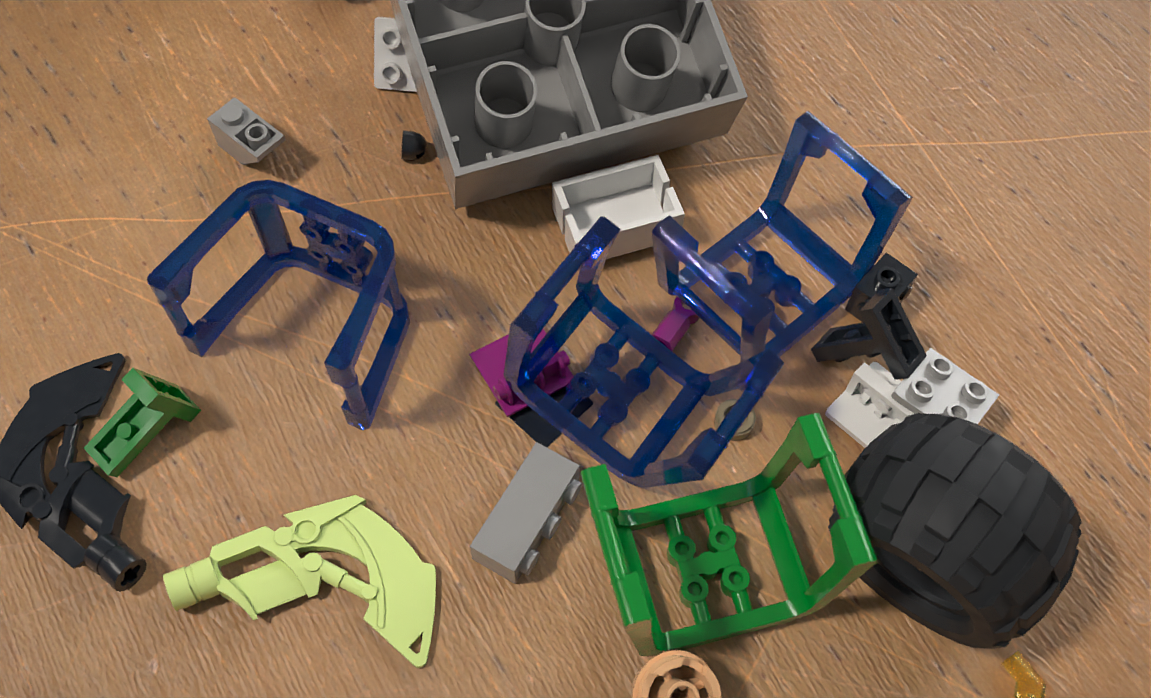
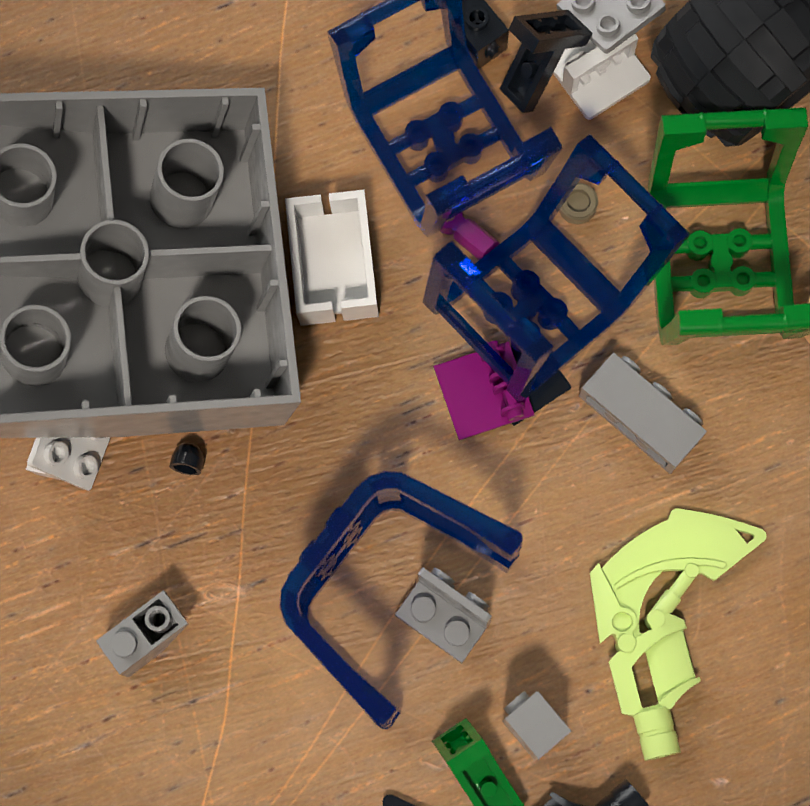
camera: 70 degrees left, 15 degrees up
(187, 456) = (534, 724): none -> light grey brick
(295, 368) = (444, 614): none -> light grey bracket

